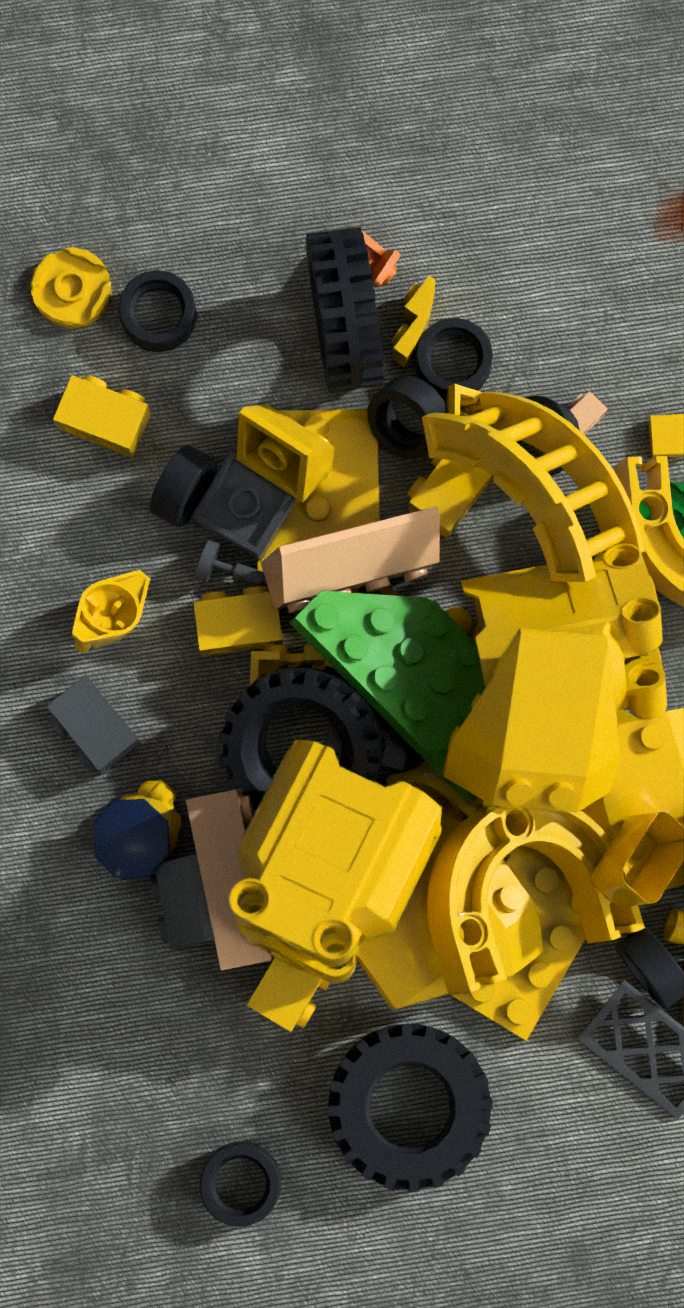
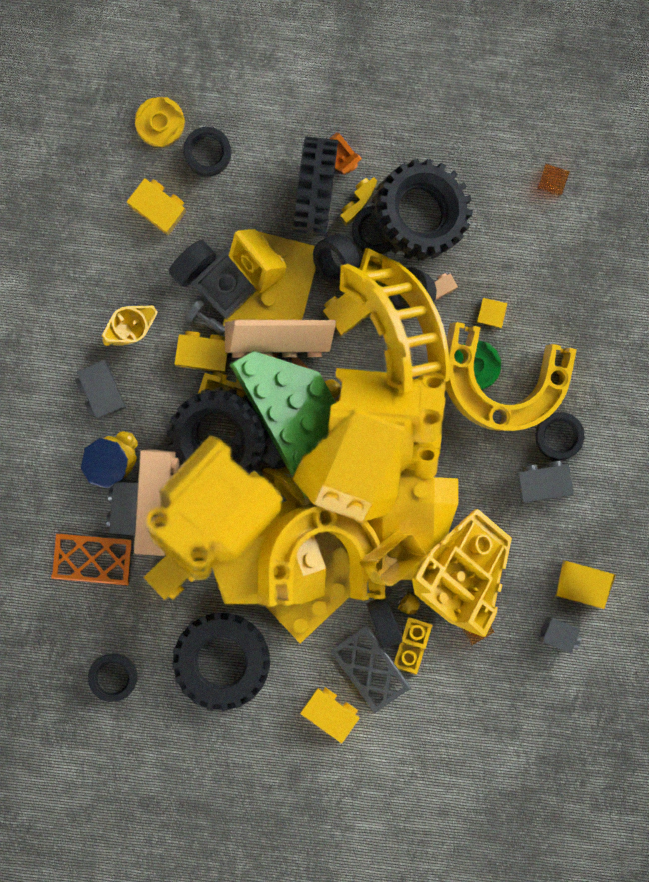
camera: 15 degrees right, 5 degrees up
(180, 1024) = (80, 541): none -> orange window
(546, 270) = (442, 188): none -> black tyre
(609, 1143) = (330, 714): none -> yellow brick

